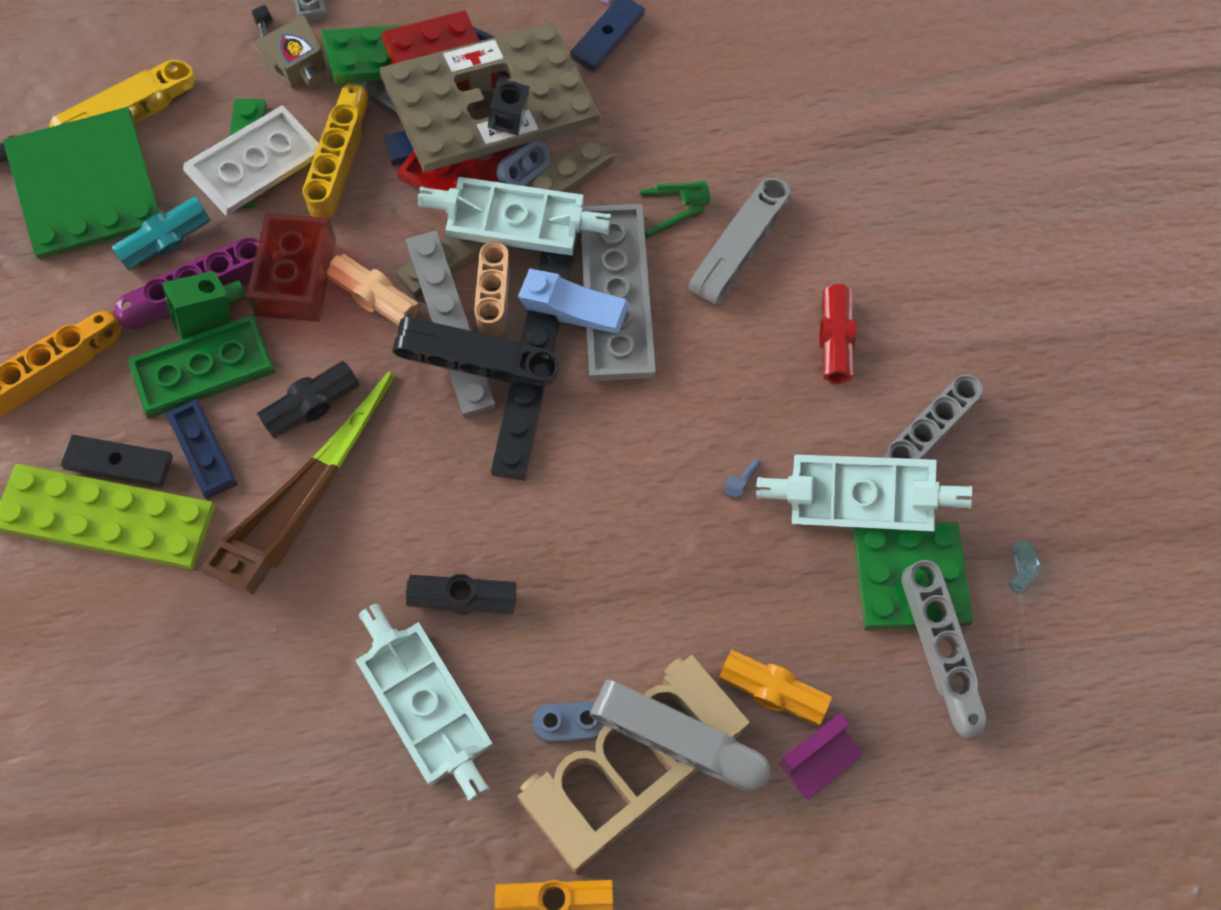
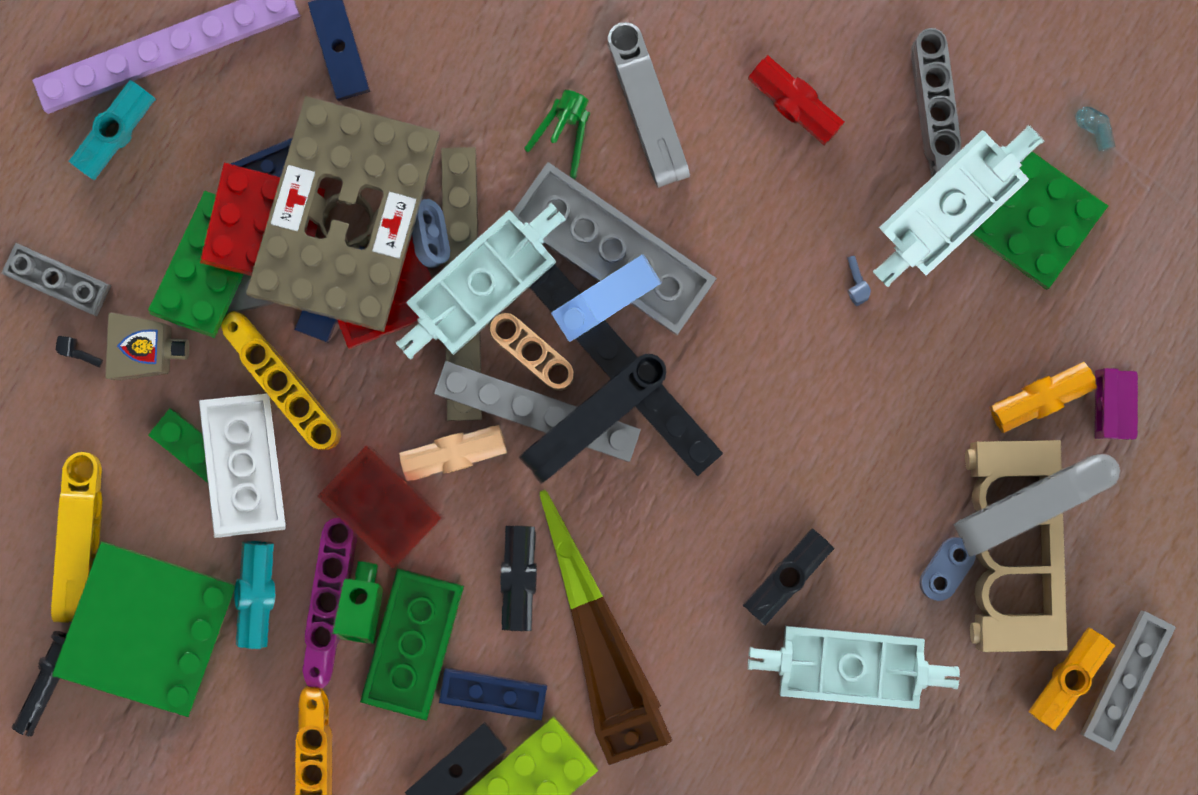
camera: 50 degrees left, 20 degrees up
(508, 106) = (383, 226): black brick -> none
(967, 702) = (1162, 268): light grey piece -> none

